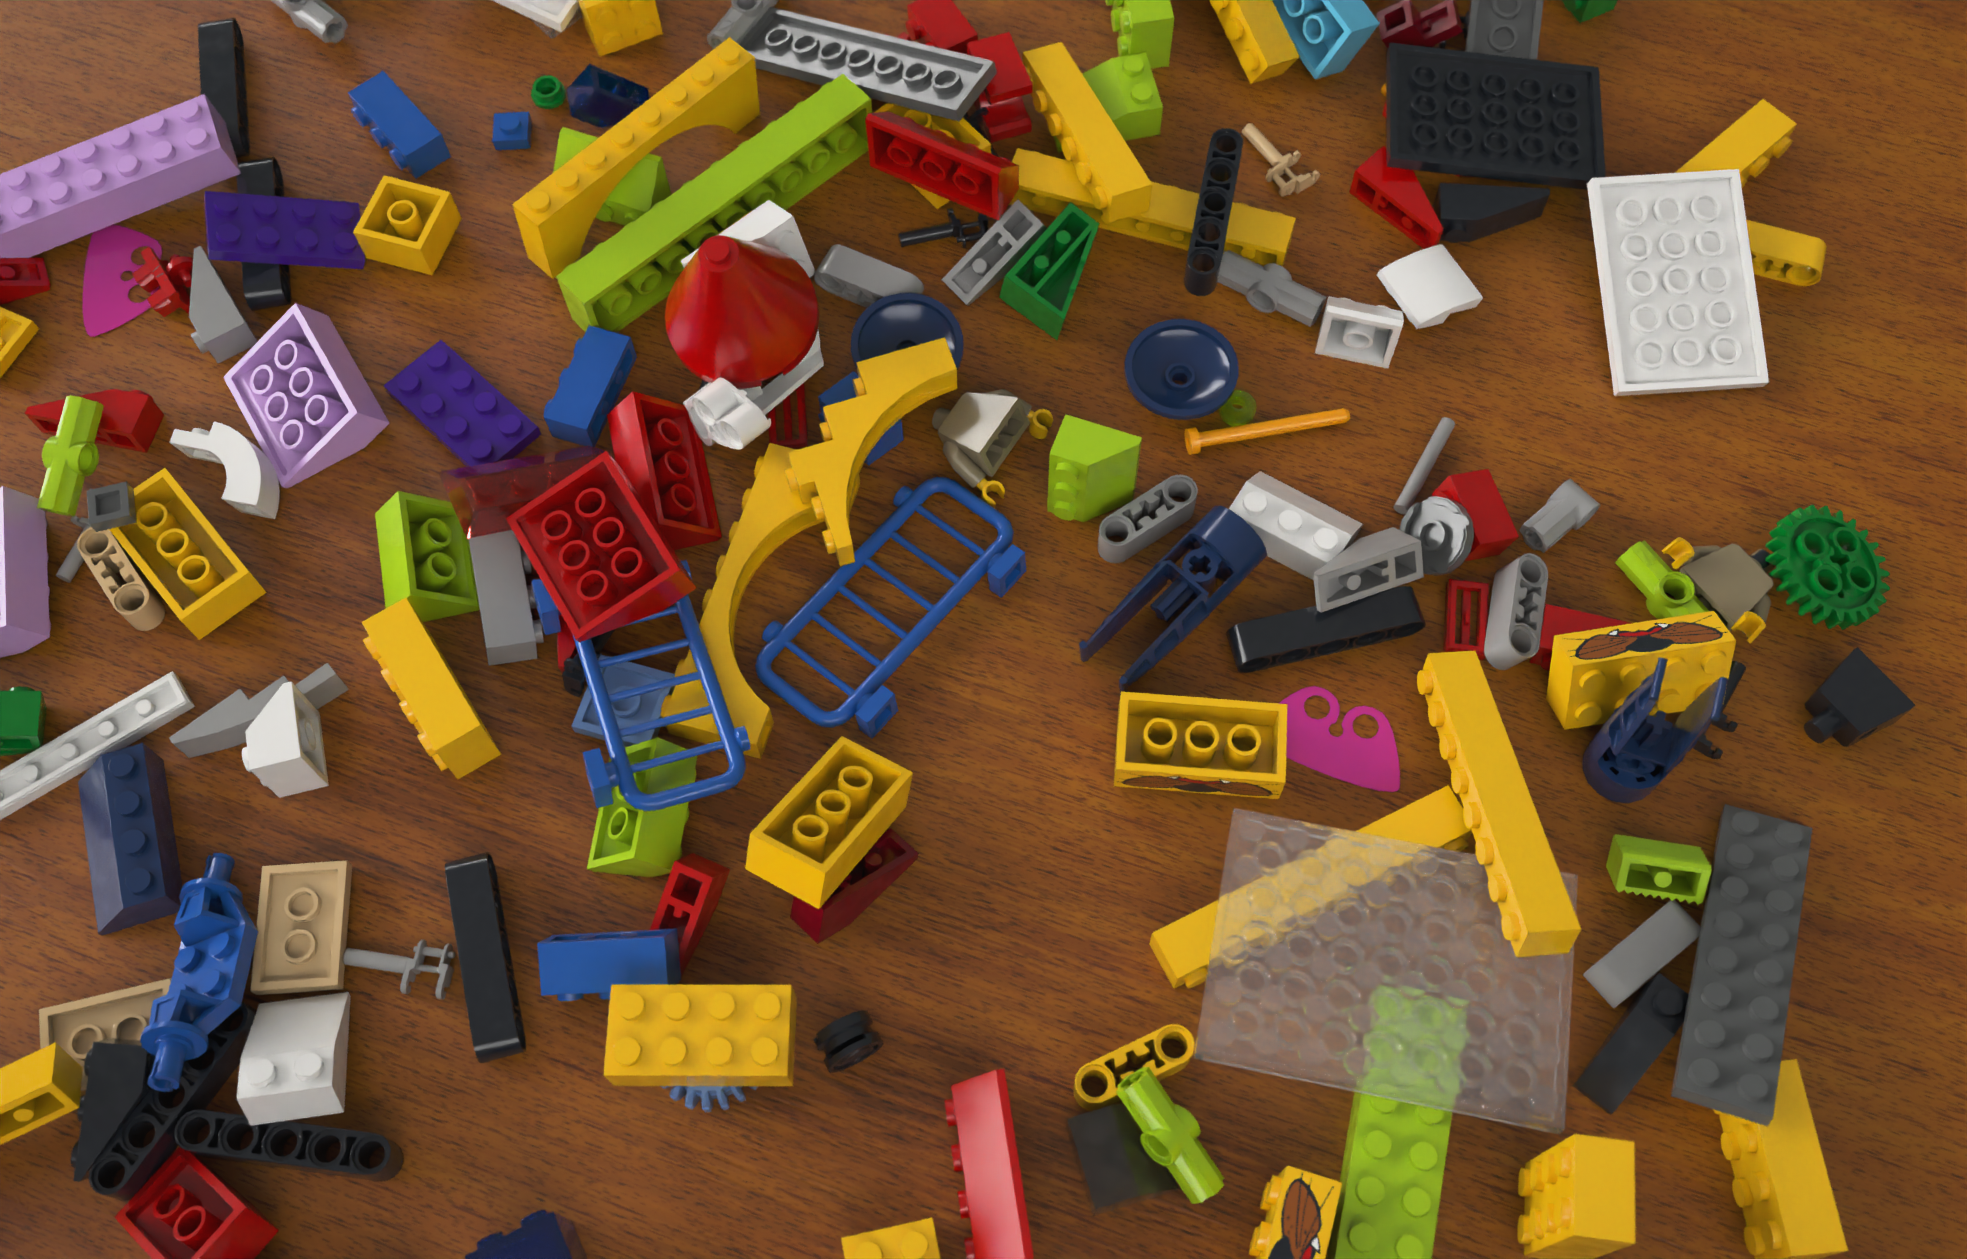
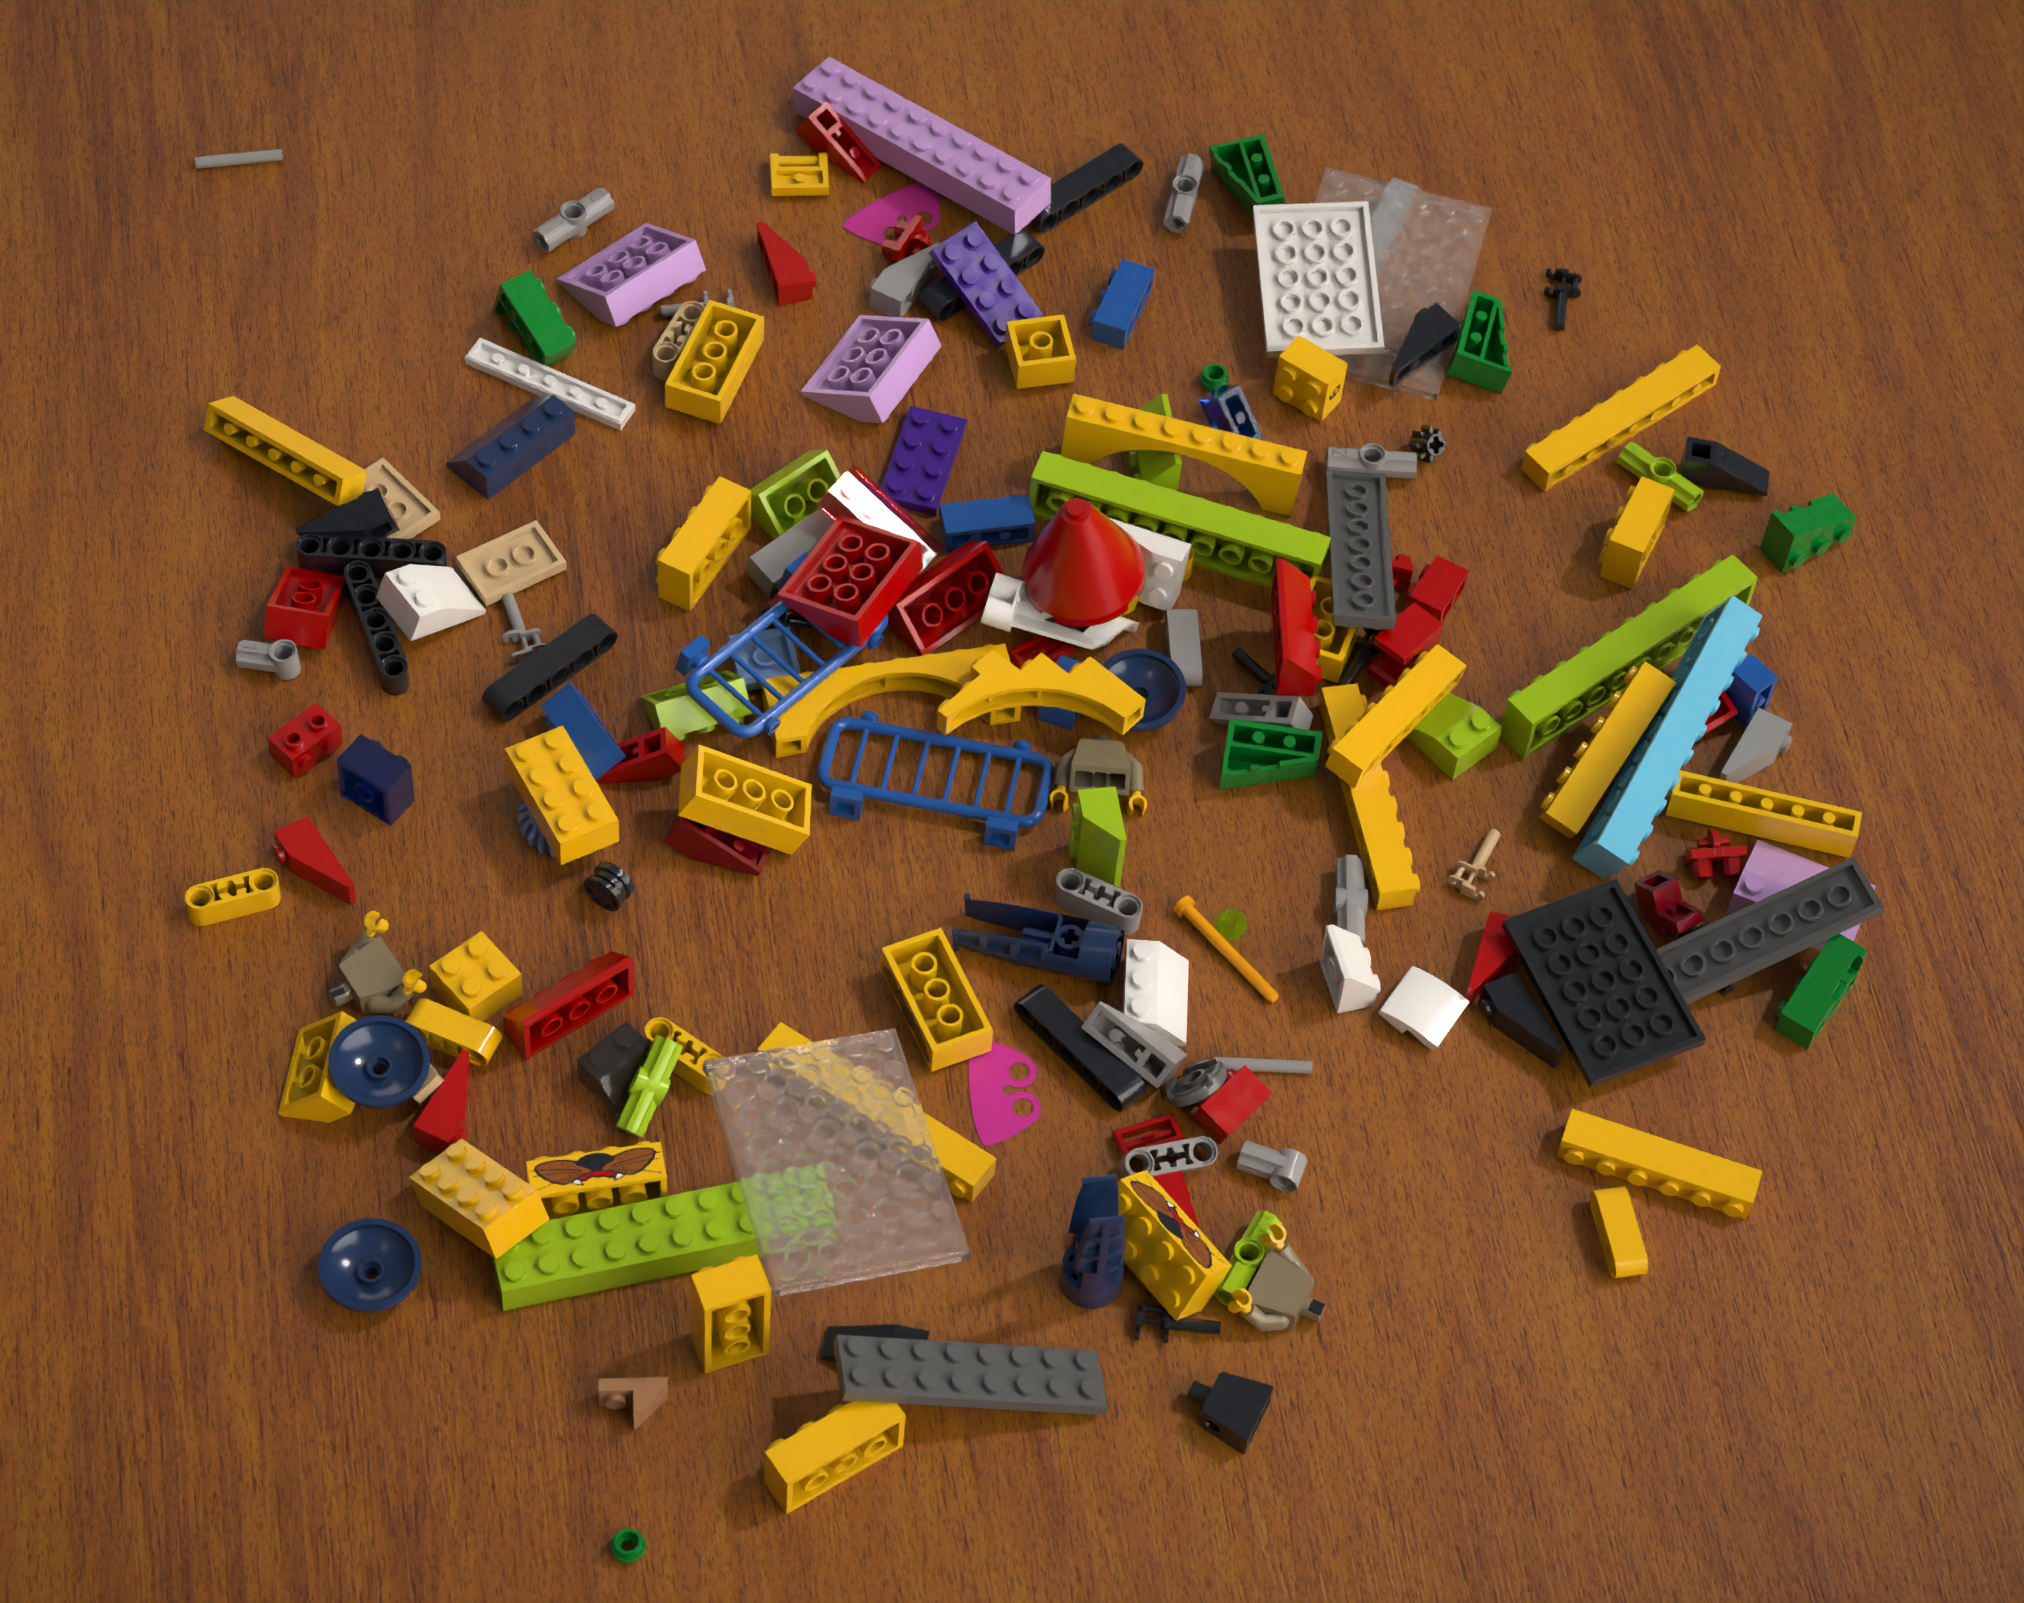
camera: 55 degrees right, 10 degrees down
(70, 456) = (741, 263): lime piece -> none
(111, 506) = (716, 303): dark grey plate -> none
(207, 972) = (474, 523): blue plate -> none
(228, 720) = (627, 460): light grey slope -> none
(251, 477) = (799, 362): white arch -> none
(287, 744) = (621, 487): white slope -> none
(512, 130) = (1168, 373): blue plate -> none
(1184, 353) = (1234, 855): dark blue dish -> none
(1213, 212) = (1363, 833): black beam -> none
(1498, 806) = (994, 1177): yellow brick -> none
(1643, 953) = (945, 1323): light grey beam -> none
(1658, 868) = (1013, 1312): lime brick -> none
(1677, 282) = (1530, 1164): white plate -> none
(1827, 567) = (1359, 1379): green gear -> none

